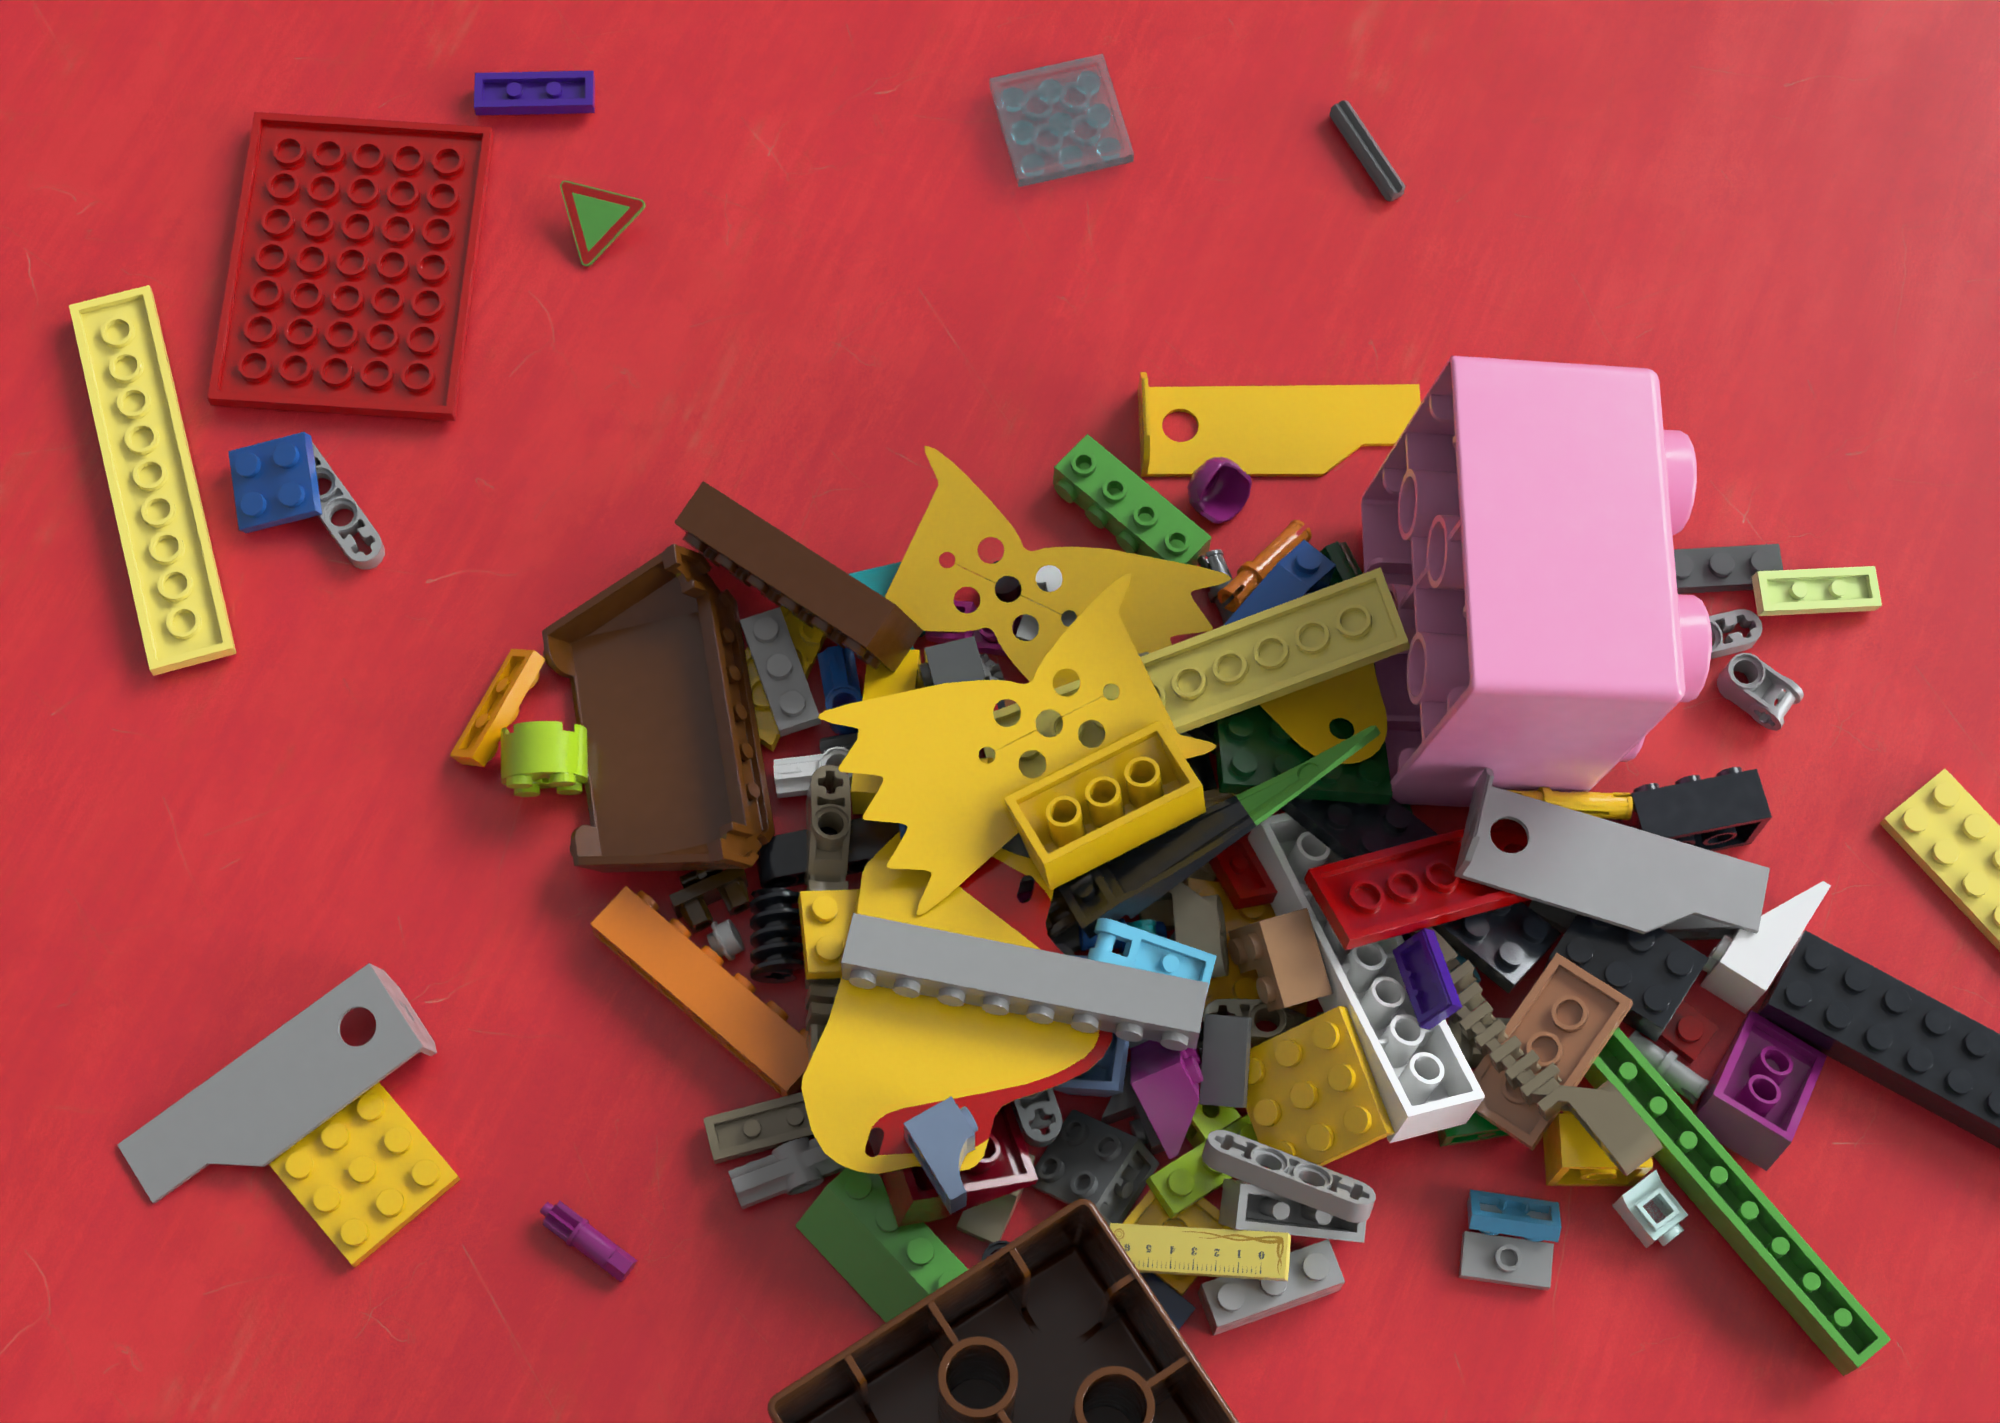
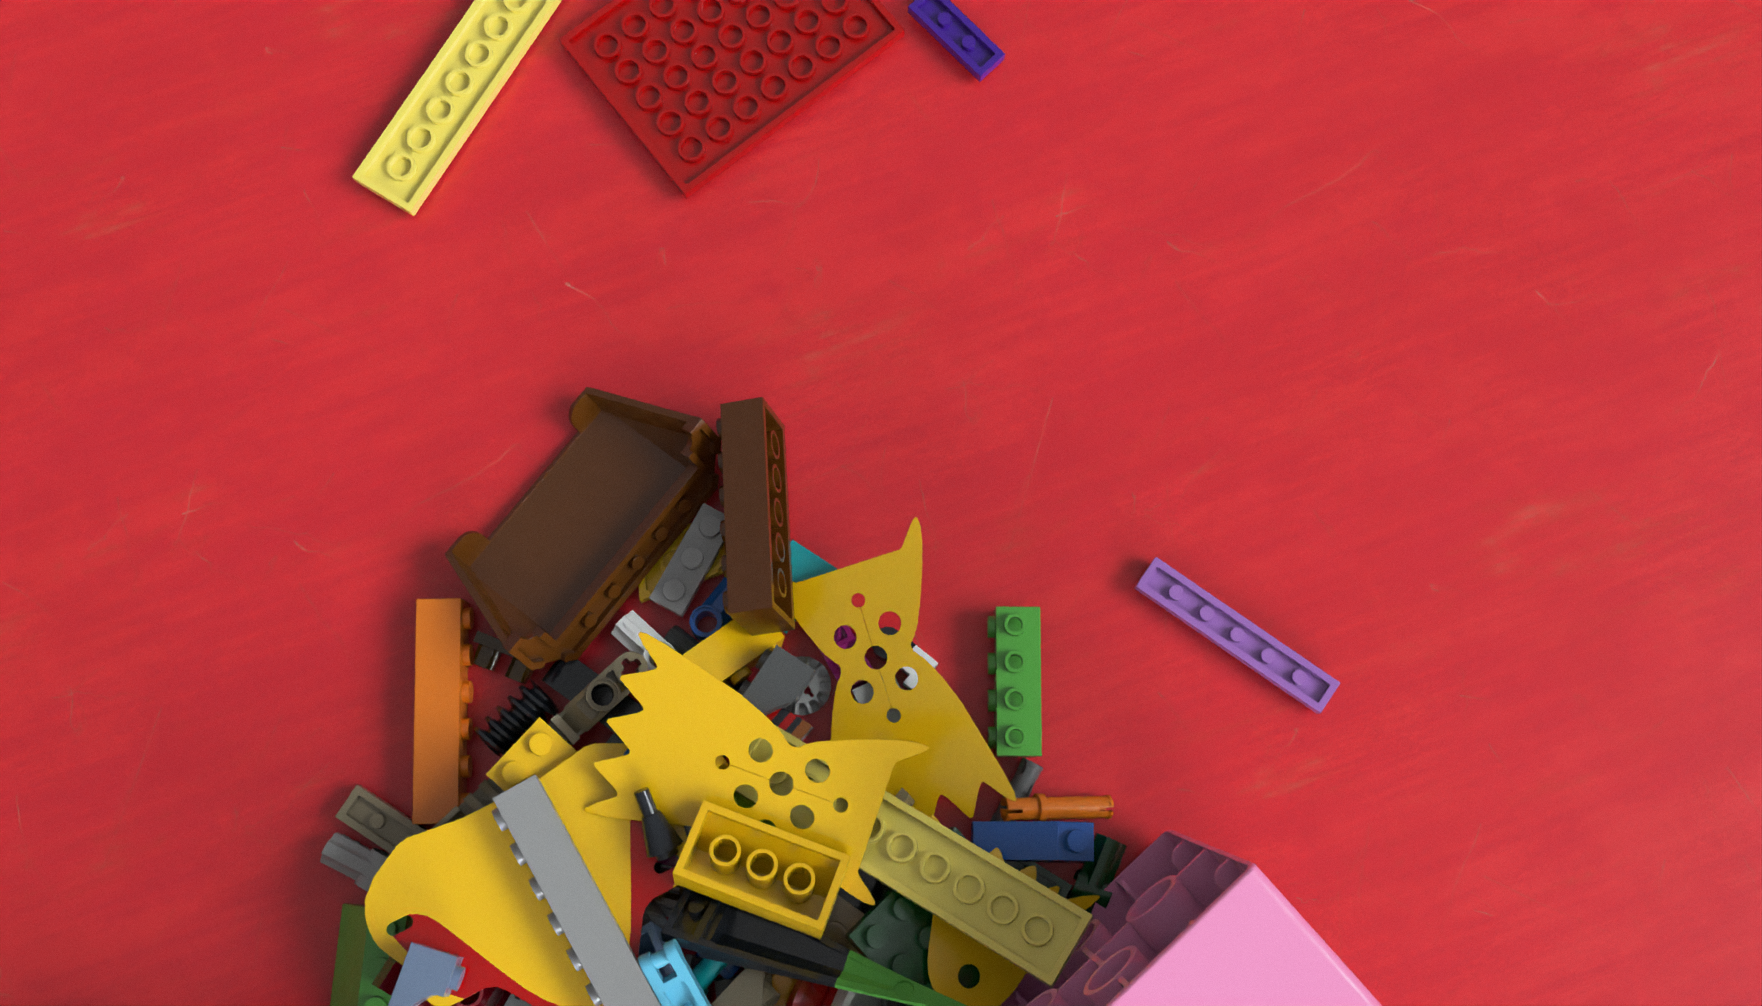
camera: 50 degrees right, 10 degrees up
(275, 482) = (540, 132): blue plate -> none
(279, 1087) = (164, 511): light grey piece -> none
(340, 498) = (565, 177): light grey beam -> none
(365, 1173) = (153, 607): yellow plate -> none
(498, 707) = (515, 407): light orange plate -> none
(544, 757) = (501, 468): lime brick -> none
(589, 1241) = (222, 783): magenta piece -> none
(597, 217) = (904, 153): piece -> none
(725, 939) = (488, 689): light grey plate -> none
(997, 864) = (659, 835): none -> black cone
(1061, 120) = (1261, 380): clear light blue plate -> none
(1219, 489) = (1084, 727): magenta hair -> none
(1251, 315) = (1237, 635): none -> medium lavender plate
(1271, 427) = (1171, 722): yellow piece -> none
(1367, 150) = (1438, 602): dark grey axle -> none

